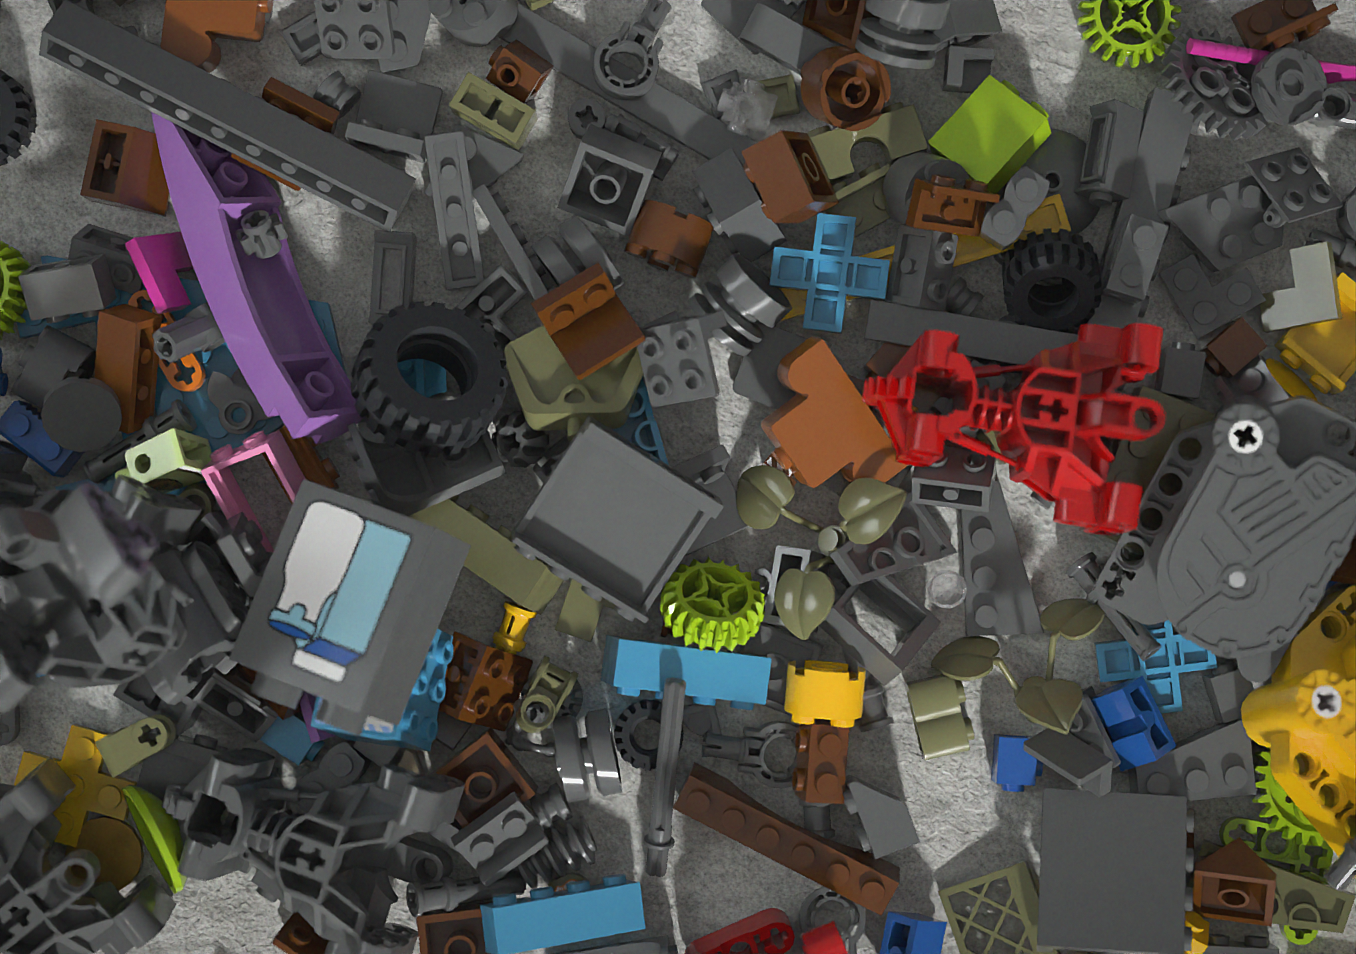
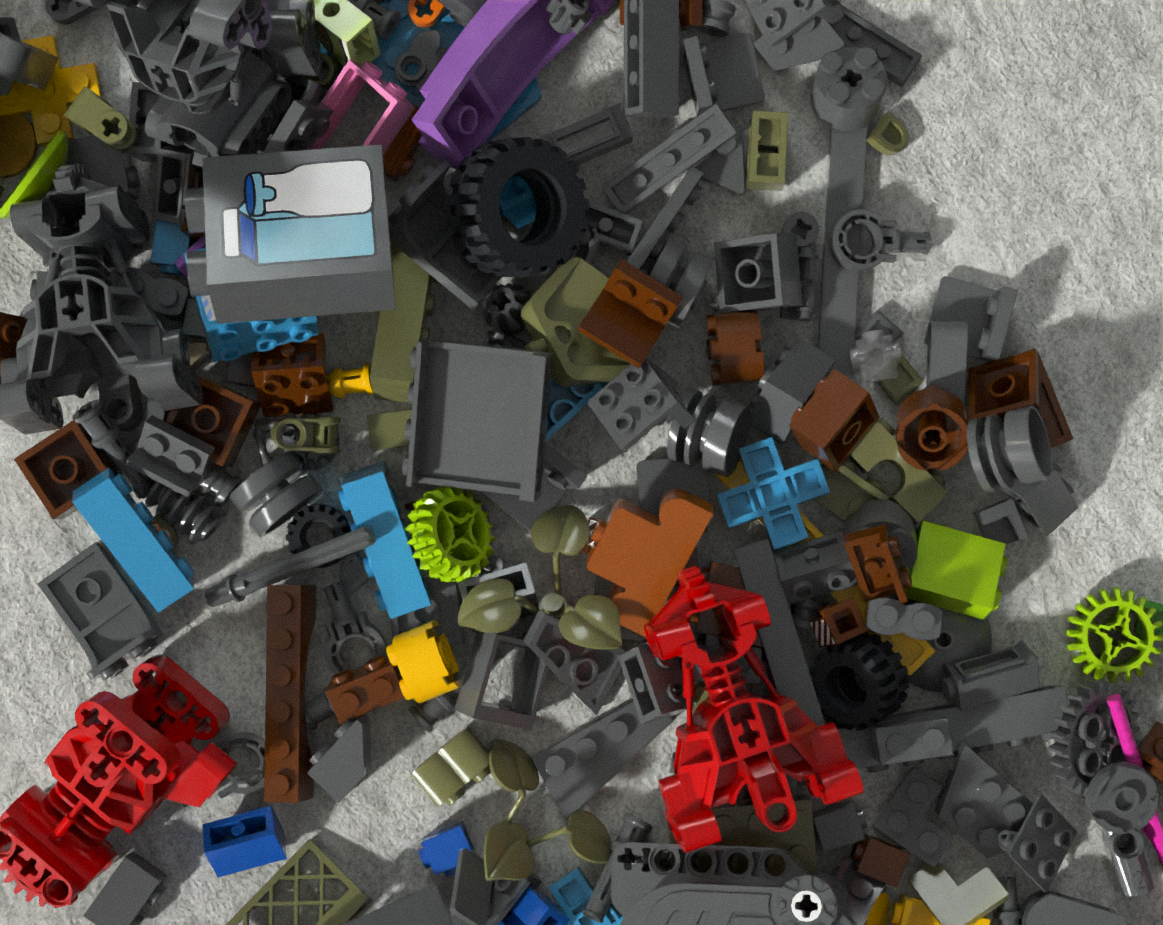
camera: 65 degrees right, 0 degrees up
(518, 71) = (810, 154): reddish brown brick -> none
(953, 589) = (563, 726): clear wheel -> none
(986, 273) = (838, 623): none -> reddish brown brick

